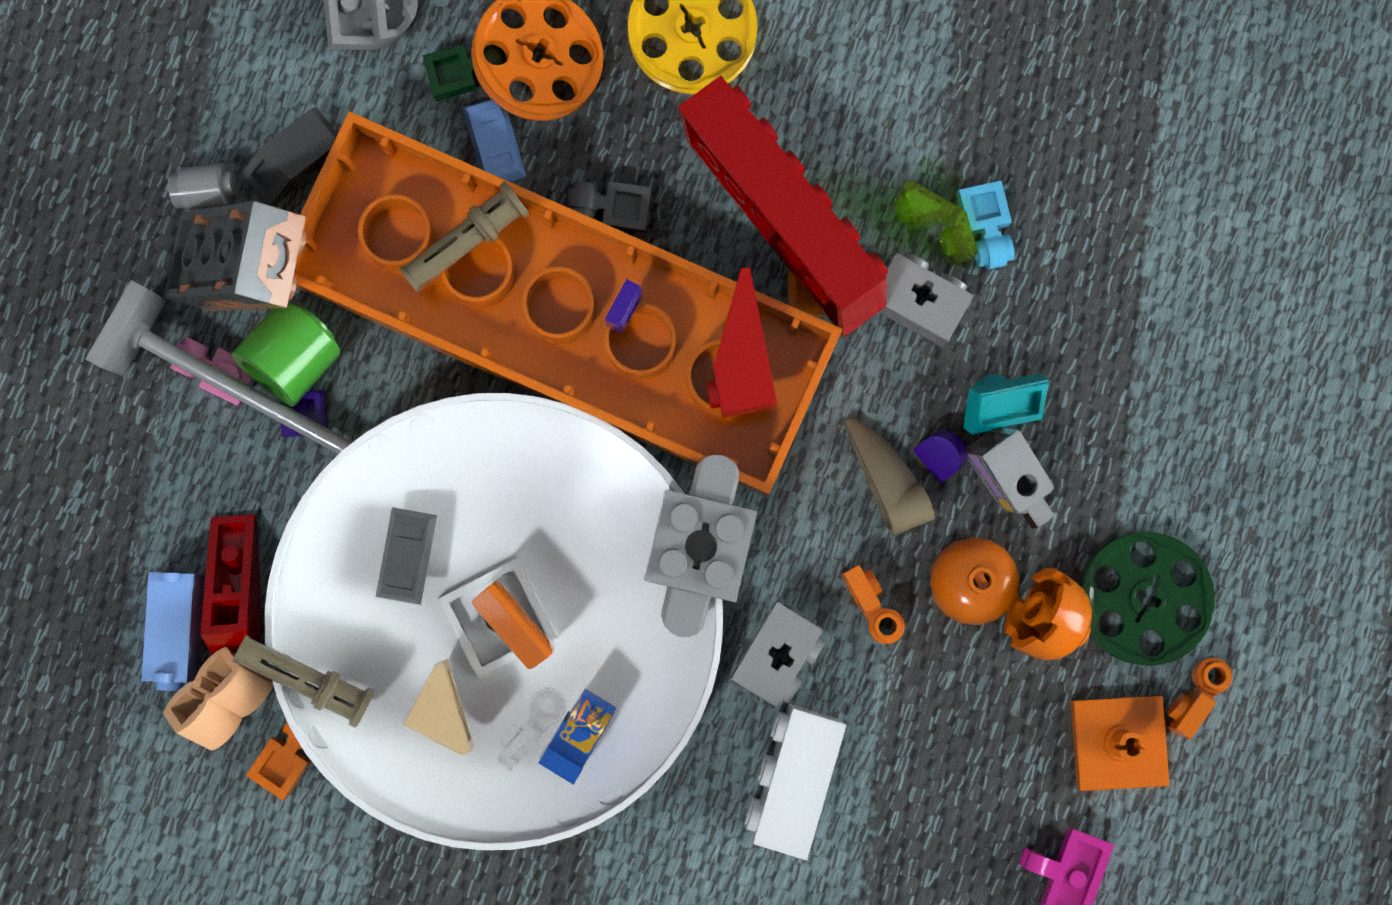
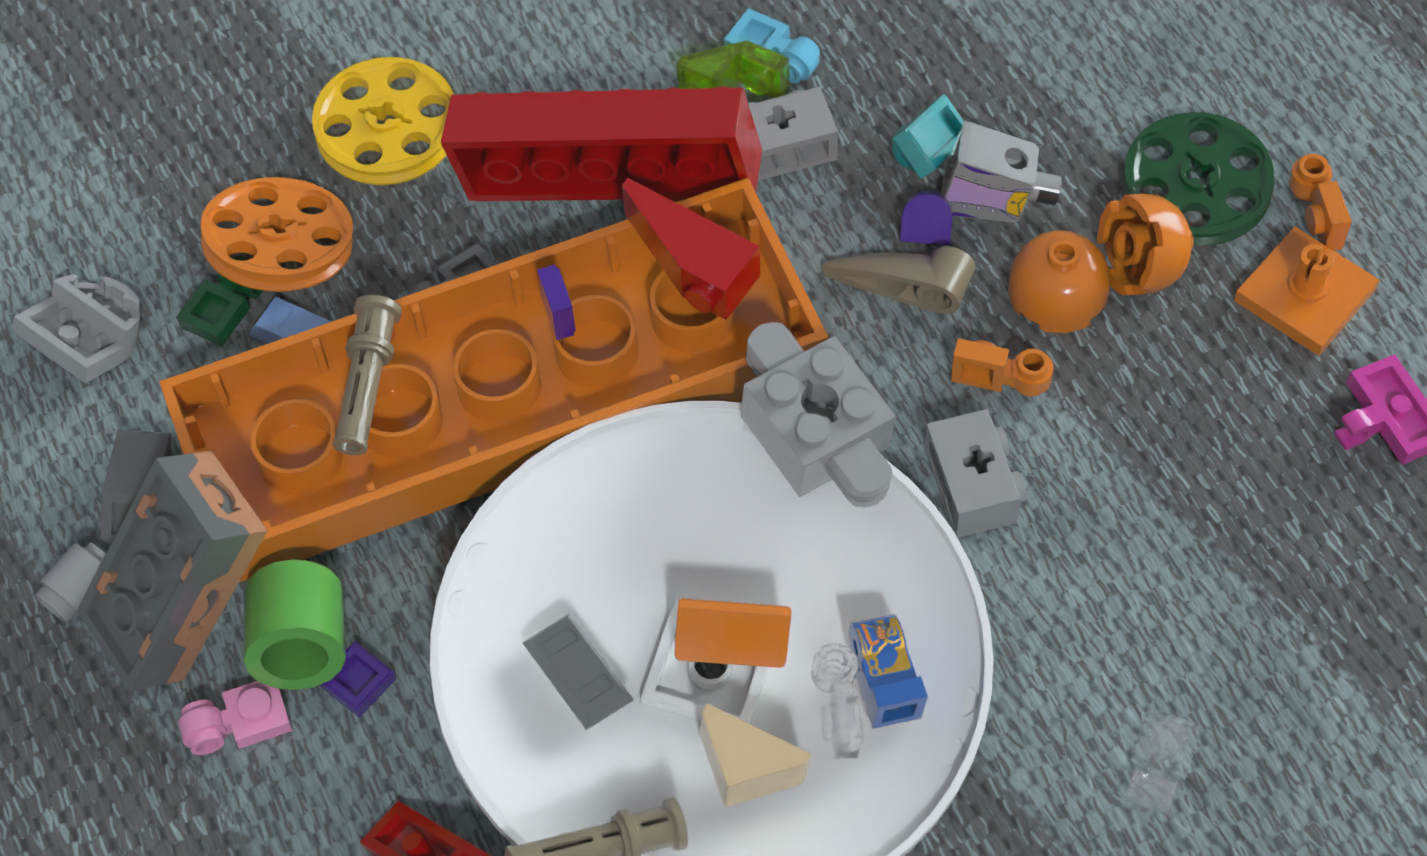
camera: 40 degrees left, 25 degrees down
(130, 329) = (130, 735): light grey tile -> none
(794, 781) = (1101, 535): white brick -> none

